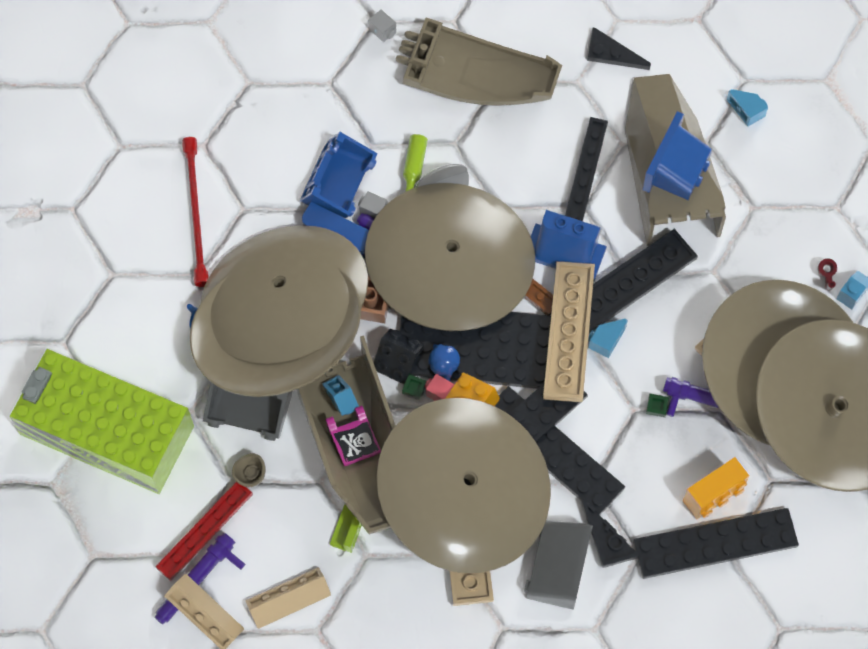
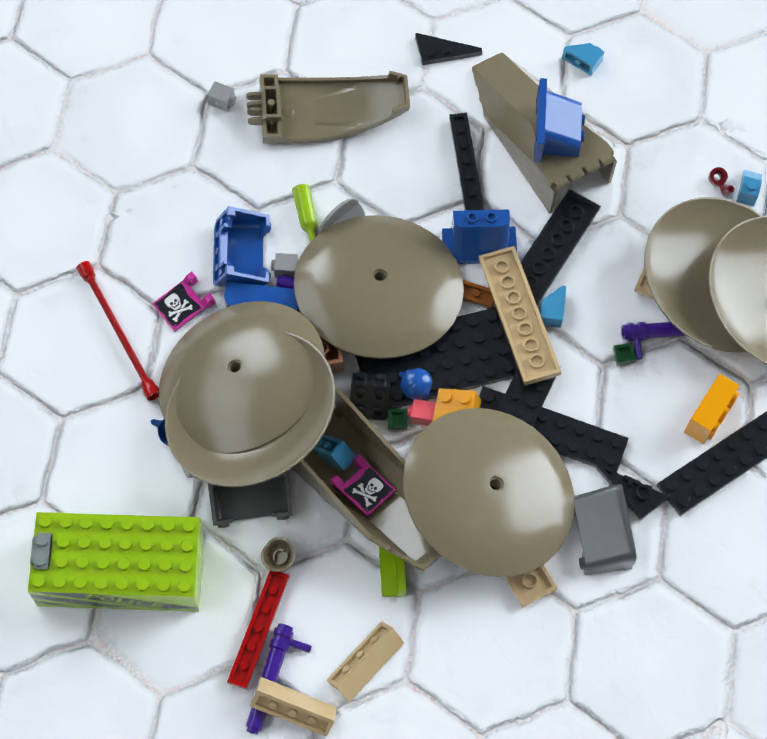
camera: 25 degrees left, 0 degrees up
(264, 207) = (182, 303): none -> flag

